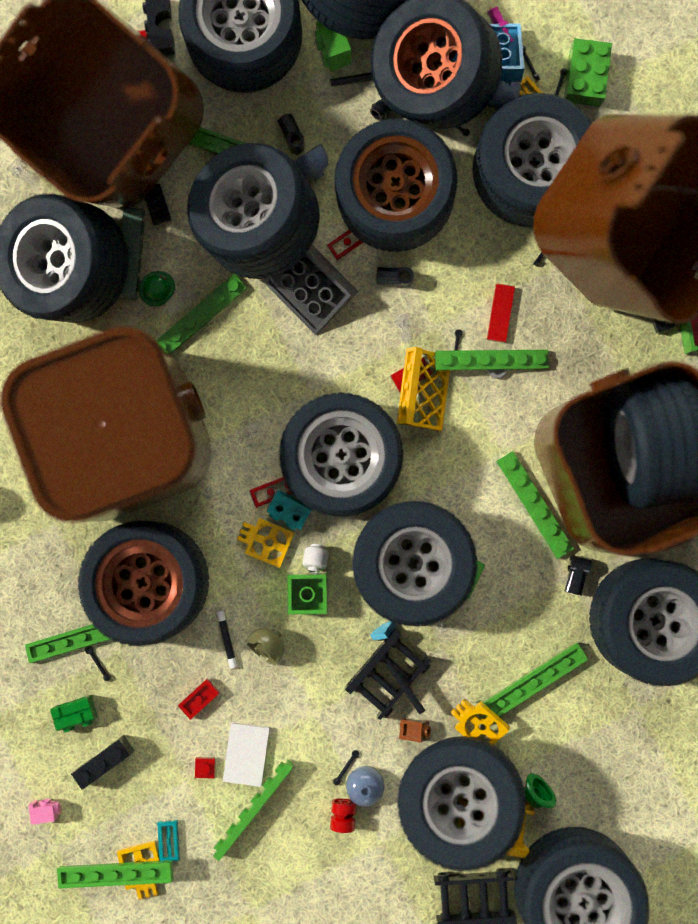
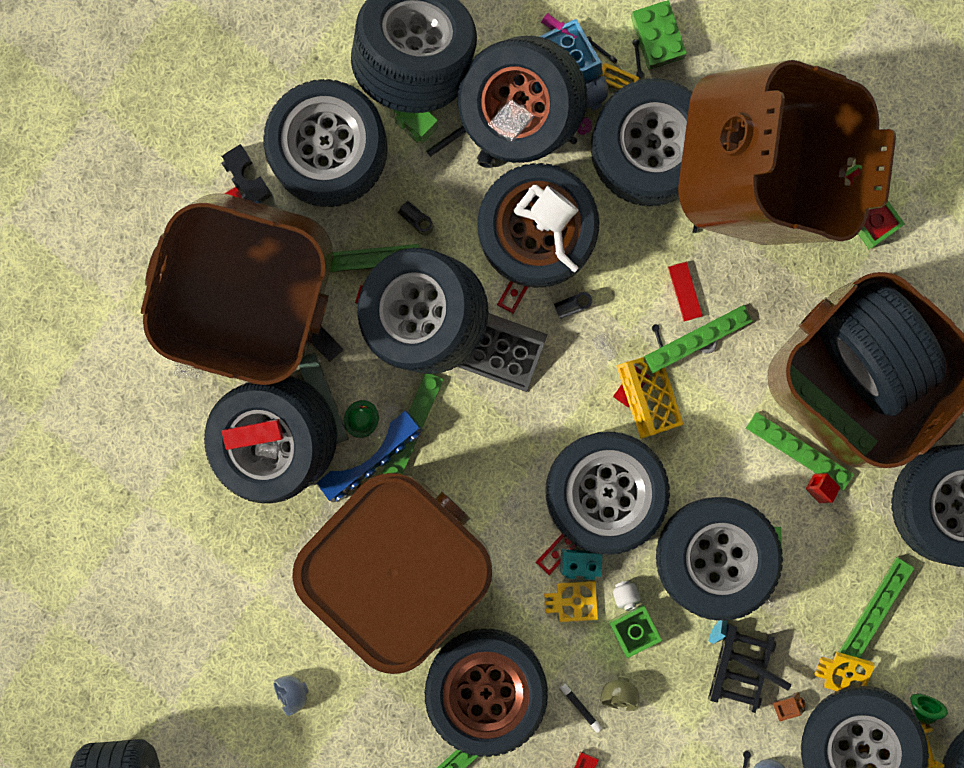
camera: 30 degrees left, 0 degrees up
(39, 241) = (252, 434): none -> red tile
(49, 263) = (267, 449): none -> clear brick
(184, 314) = (400, 432): none -> blue arch
(313, 163) = (448, 238): sand blue cylinder -> none
(410, 171) = (550, 213): none -> white piece
(415, 71) = (511, 120): none -> clear piece
(479, 126) = (587, 128): none -> dark pink plate
(540, 548) = (823, 488): none -> red panel
(578, 570) = (867, 494): black piece -> none
(582, 480) = (832, 413): none -> bright green plate

